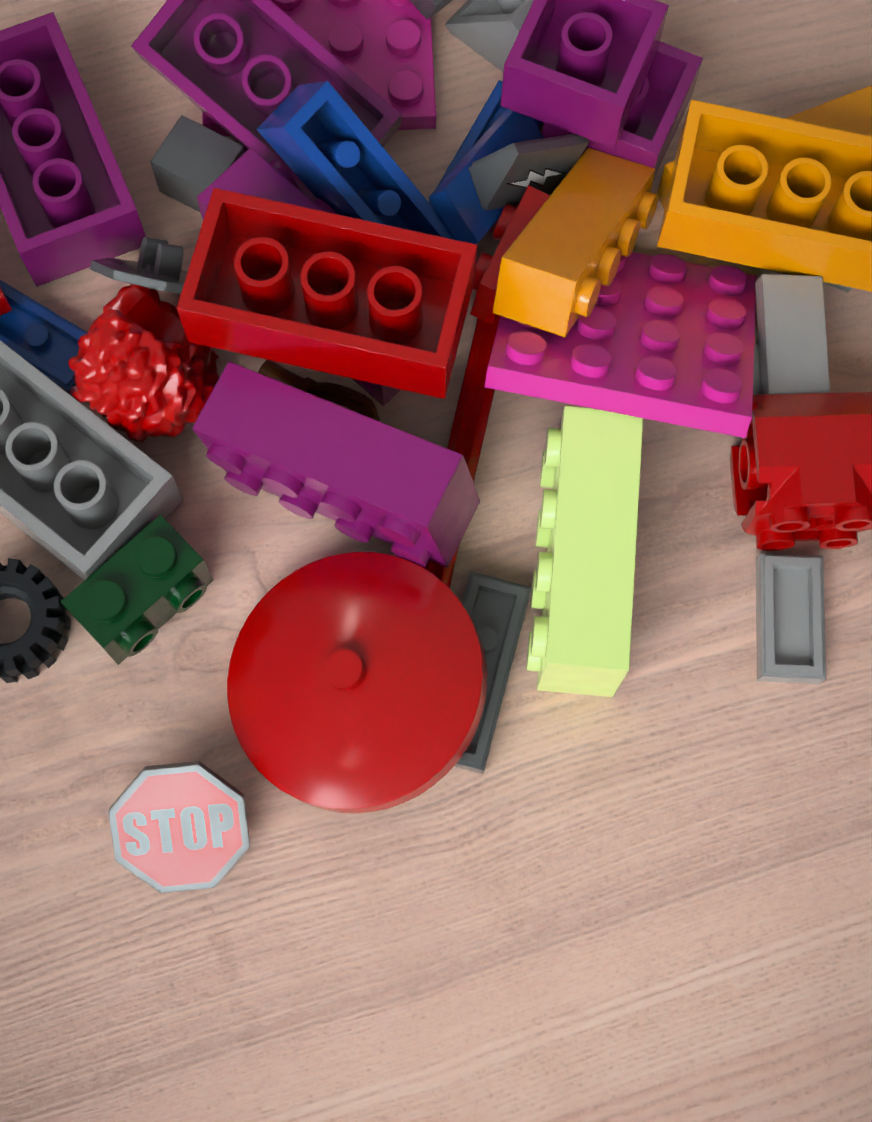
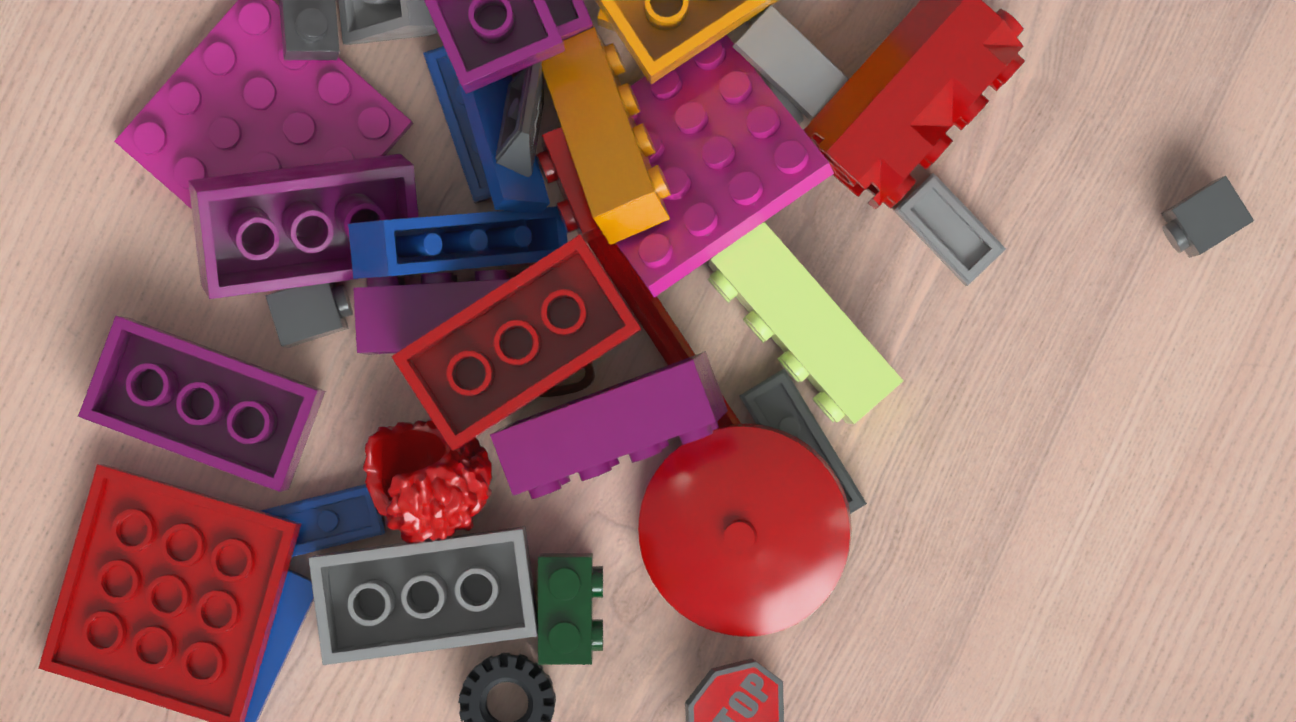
camera: 45 degrees left, 15 degrees up
(156, 268) = (366, 414): dark grey piece -> none

